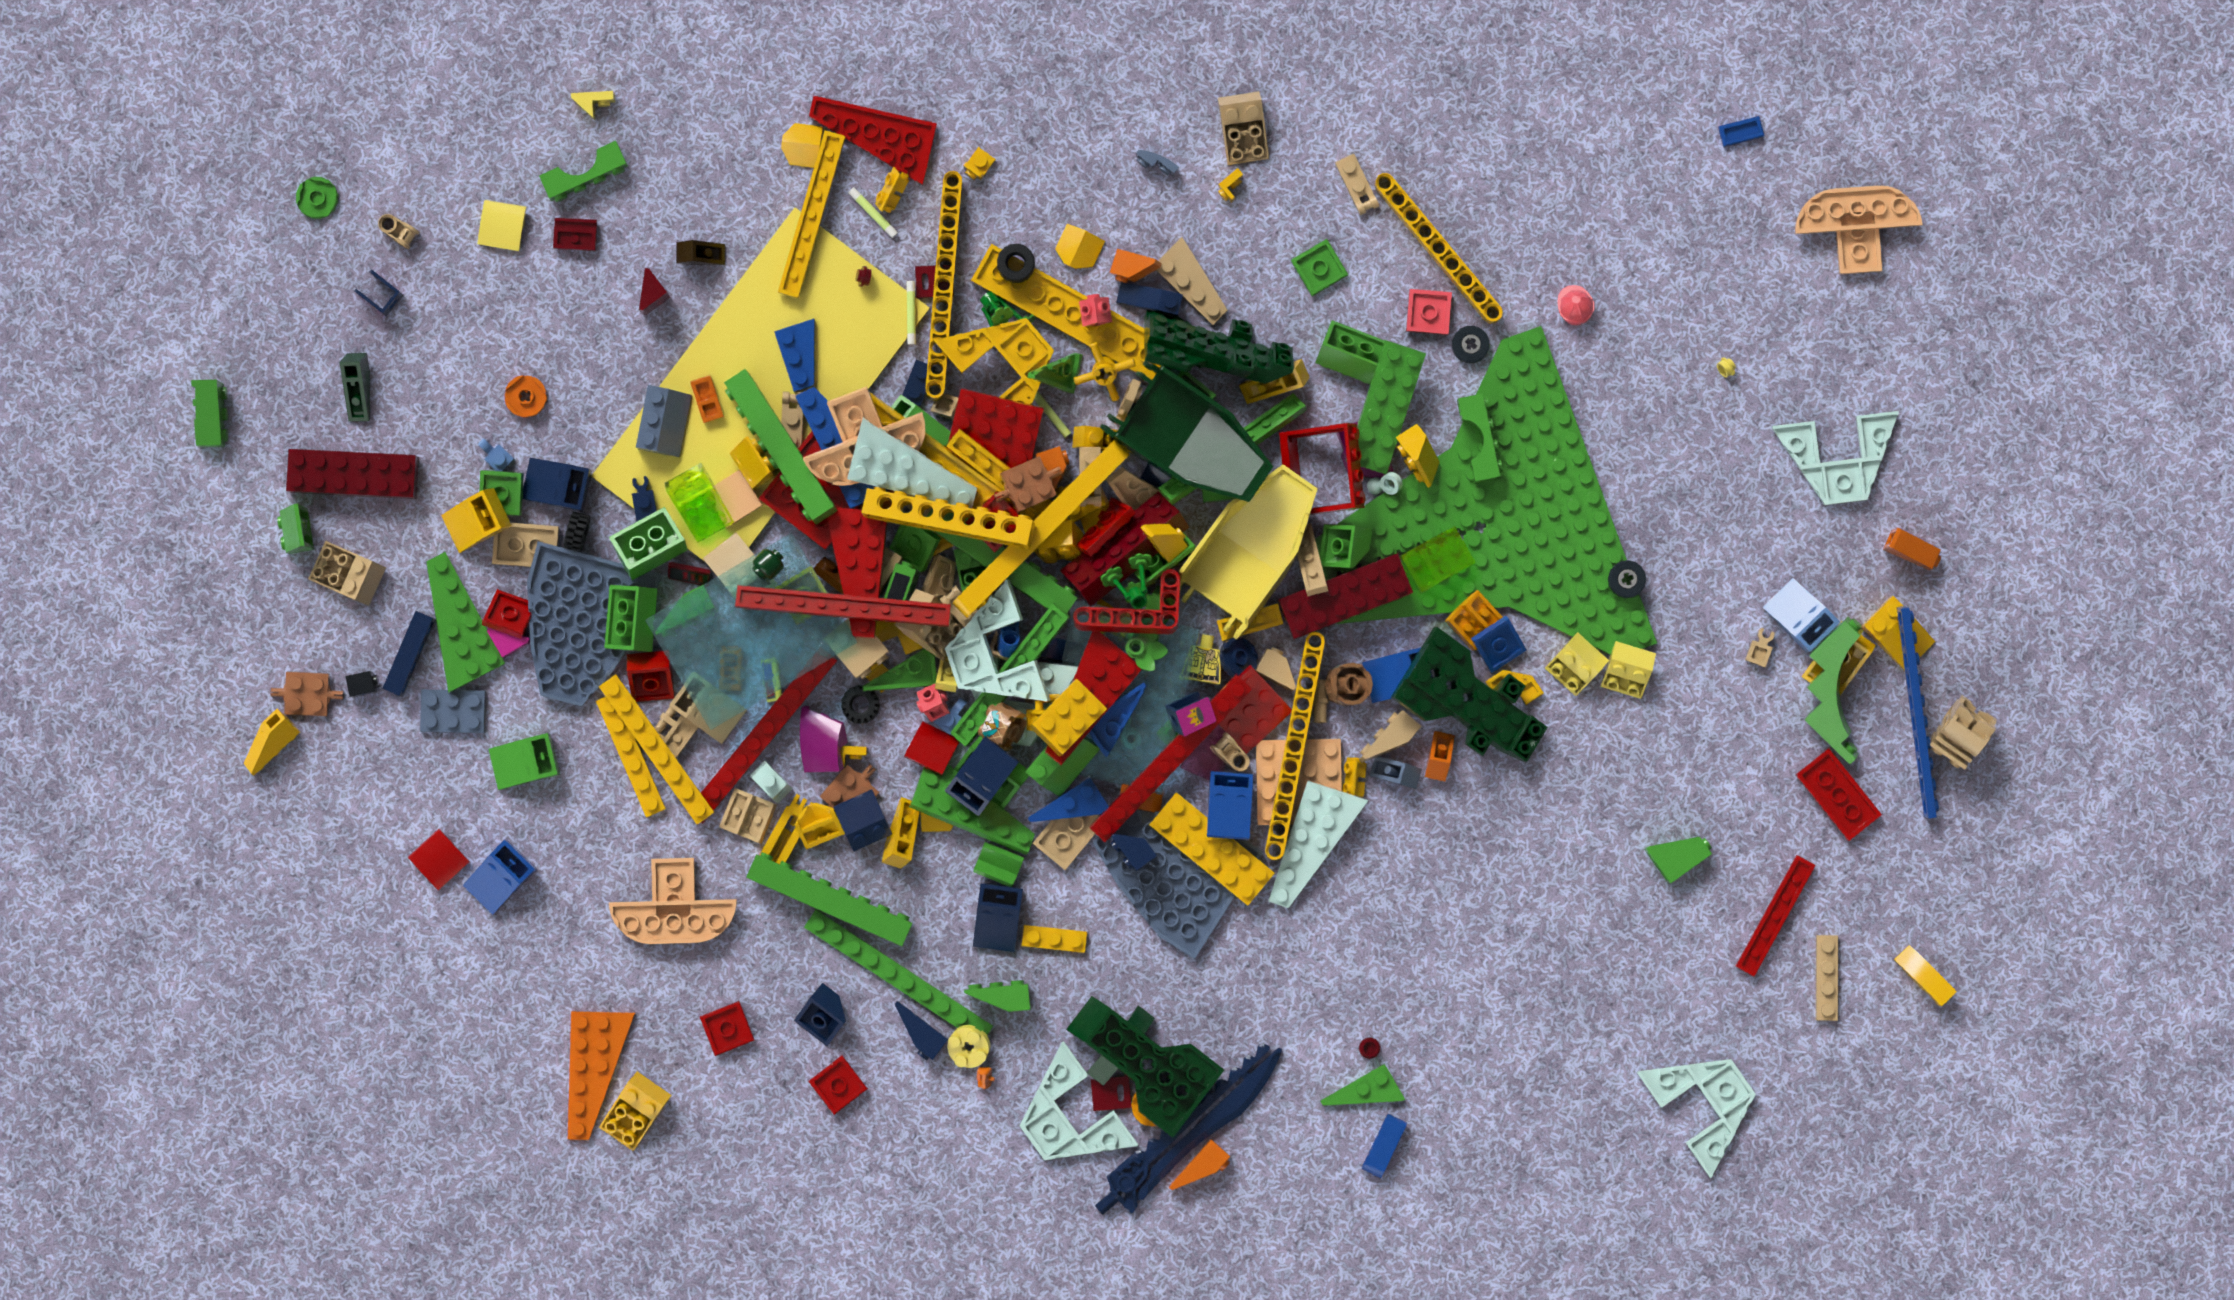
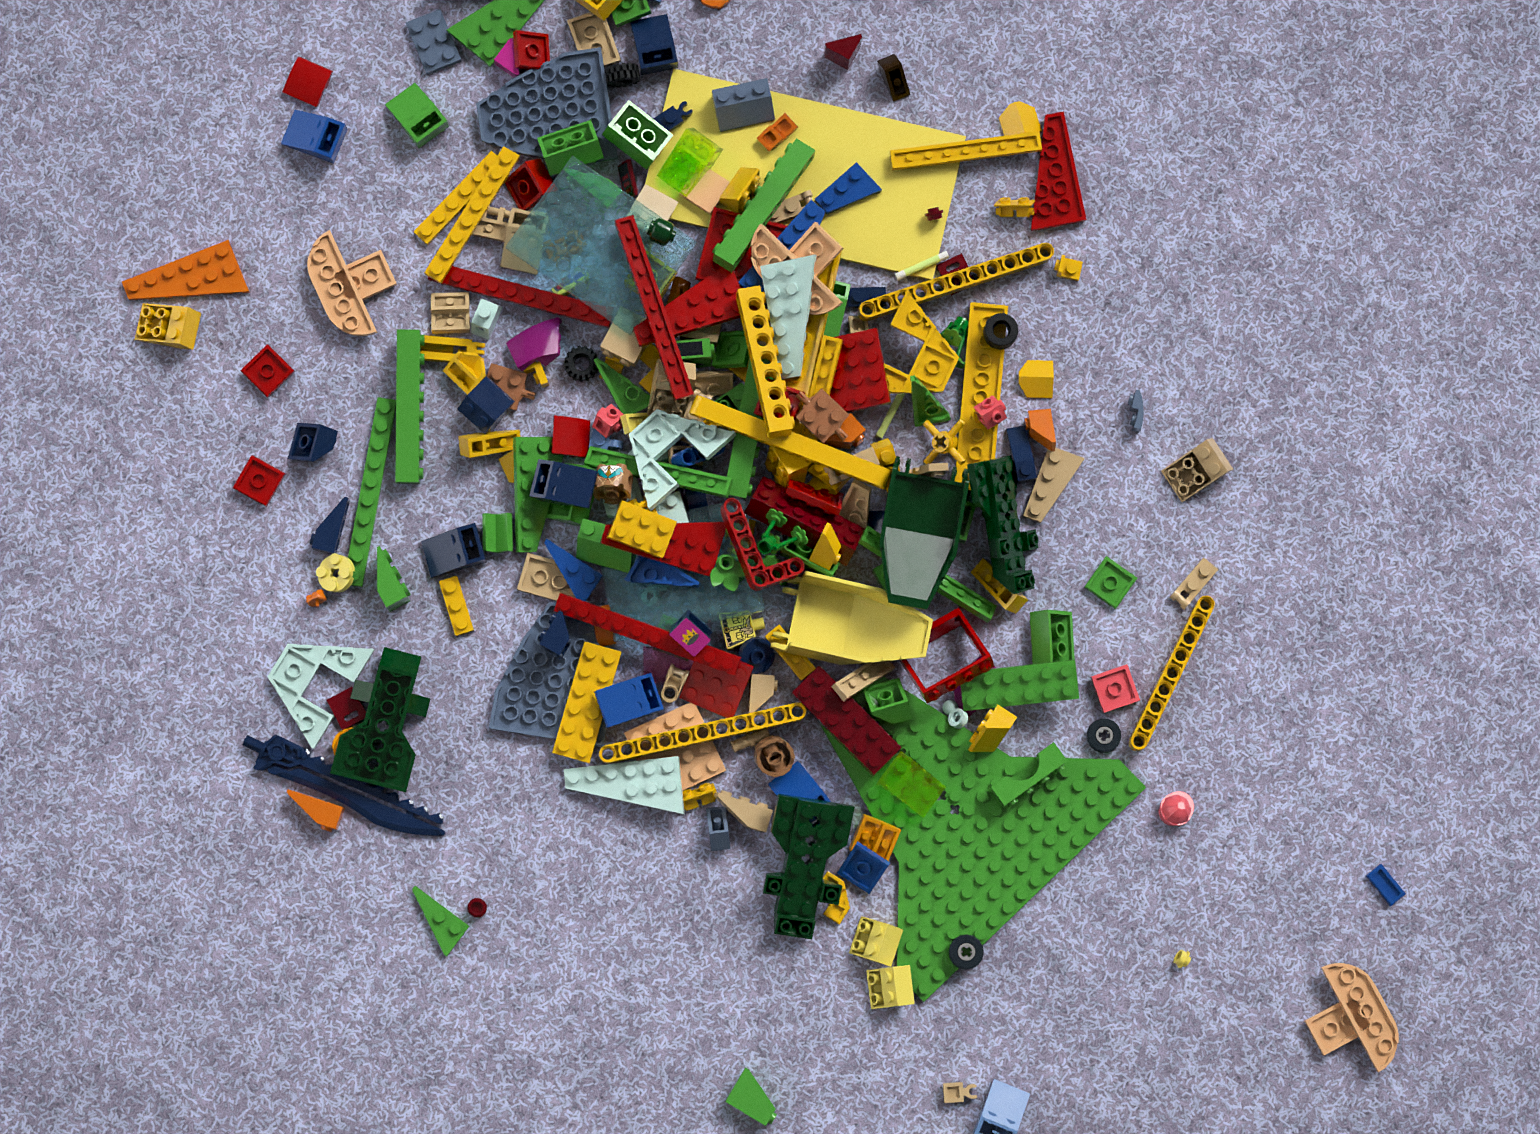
camera: 60 degrees right, 5 degrees down
(873, 212) = (990, 200): yellowish green bar -> none
(1232, 181) = (1148, 478): yellow bracket -> none
(1384, 1145) = (399, 955): blue beam -> none
(1439, 756) = (747, 859): orange slope -> none
(1843, 479) = (1132, 1099): light aqua wing -> none

